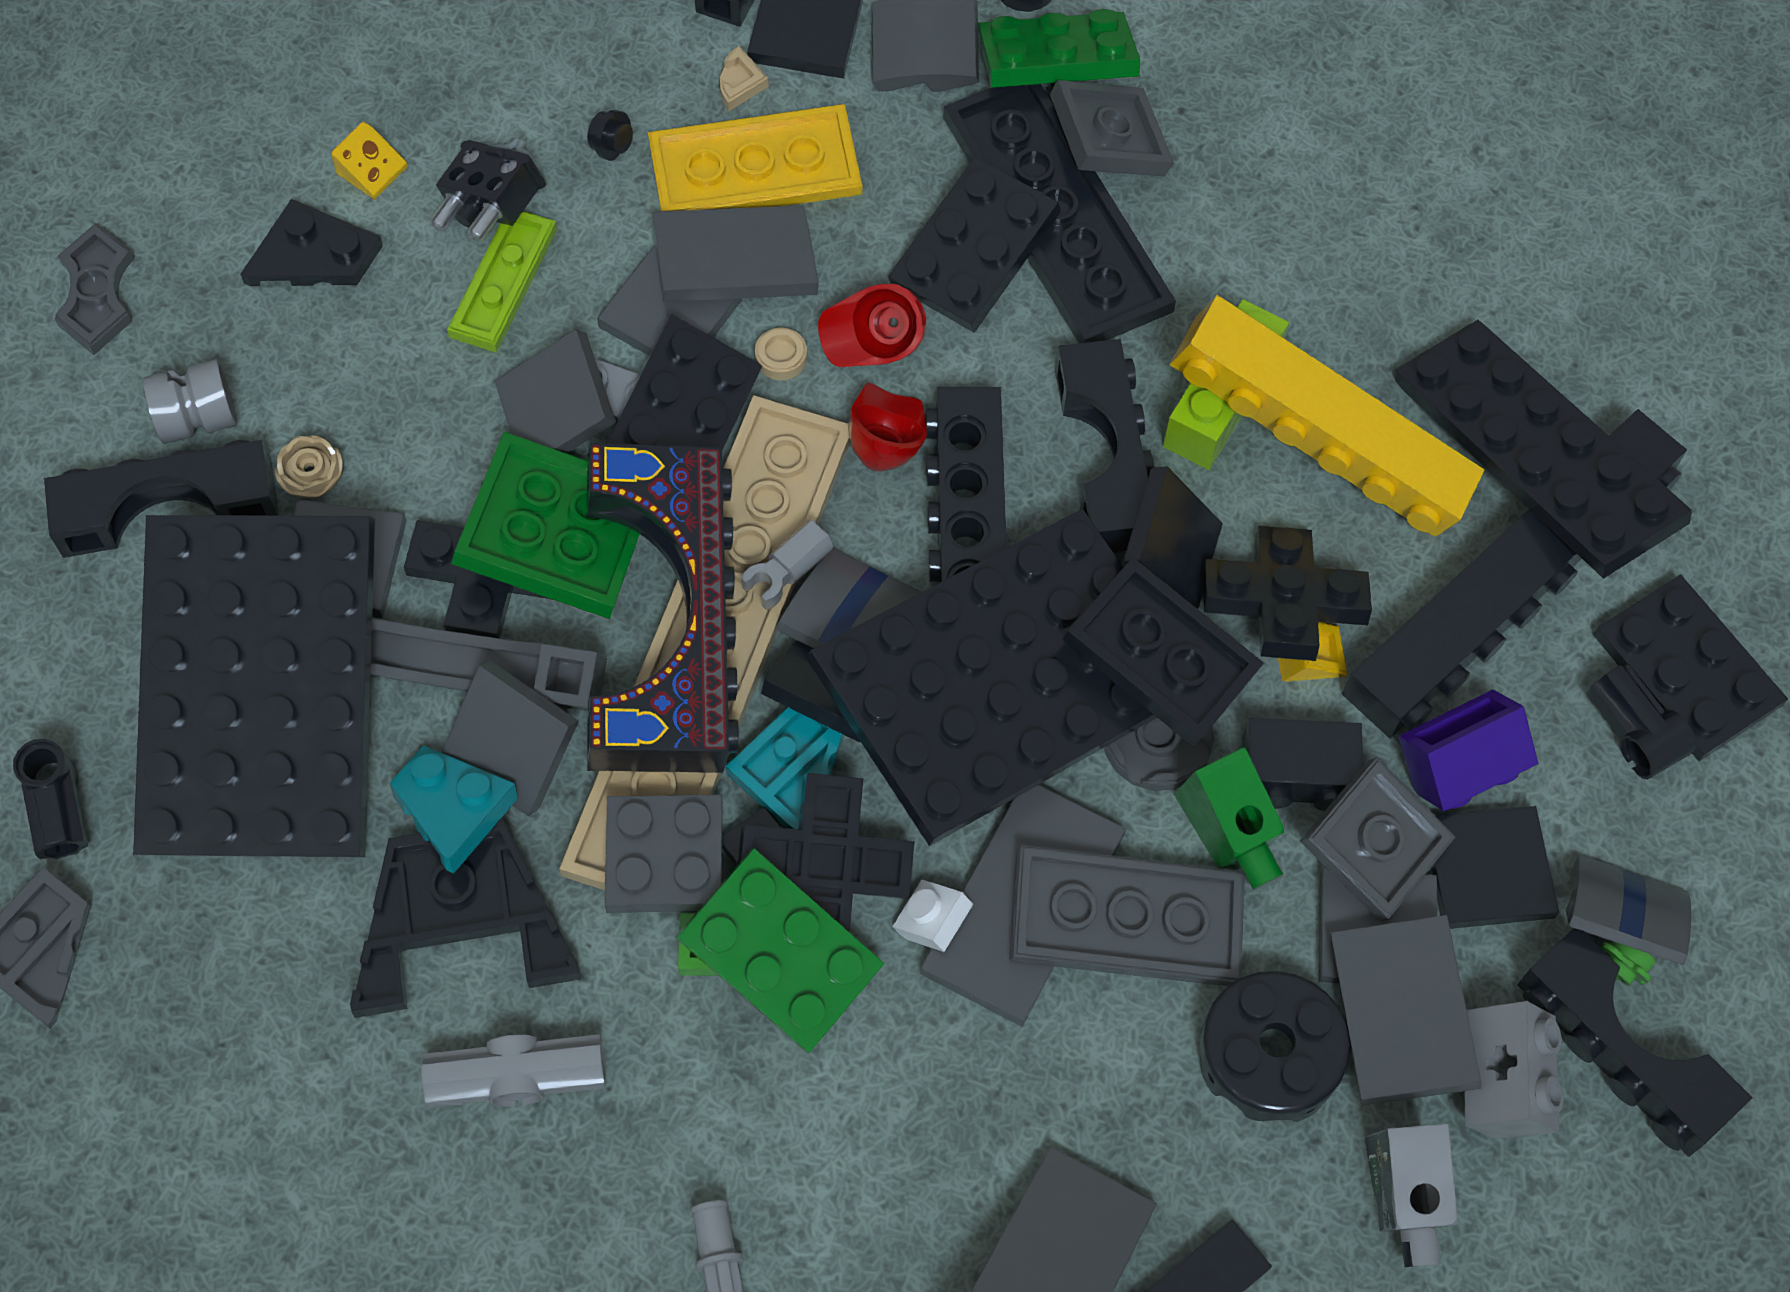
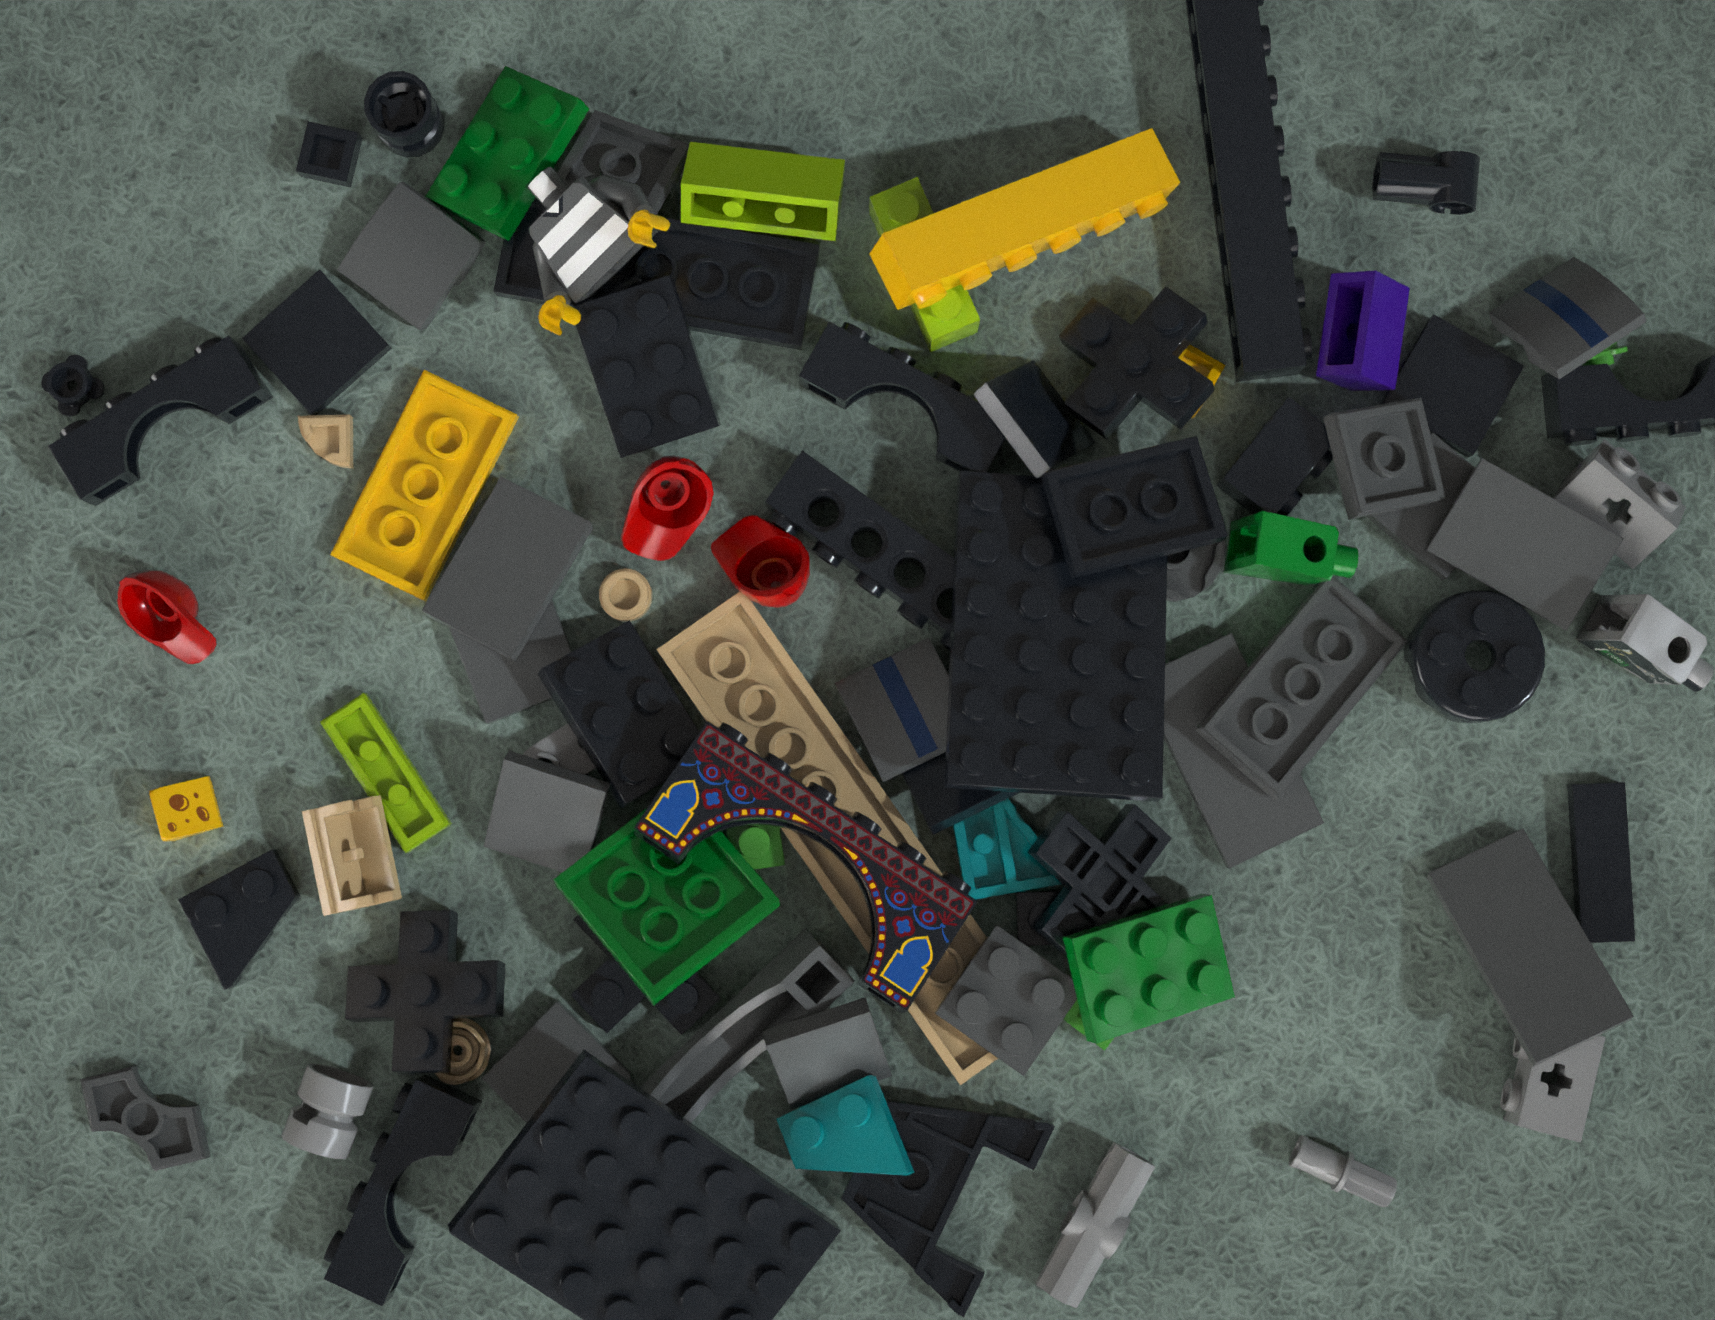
camera: 50 degrees left, 20 degrees up
(341, 409) = (425, 991): none -> black plate
(415, 288) = (351, 855): none -> tan hinge
(487, 187) = (291, 728): black piece -> none
(522, 38) = (160, 593): none -> red cap
(610, 134) = (311, 588): black plate -> none
(649, 579) = (758, 845): none -> bright green plate
(789, 562) = (834, 729): light grey bar -> none
(933, 915) = (1196, 829): white plate -> none
(1034, 122) = (586, 238): none -> torso
(1181, 231) = (762, 191): none -> lime brick
(1543, 448) = (1165, 68): black plate -> none
(1691, 664) = (1407, 101): black plate -> none

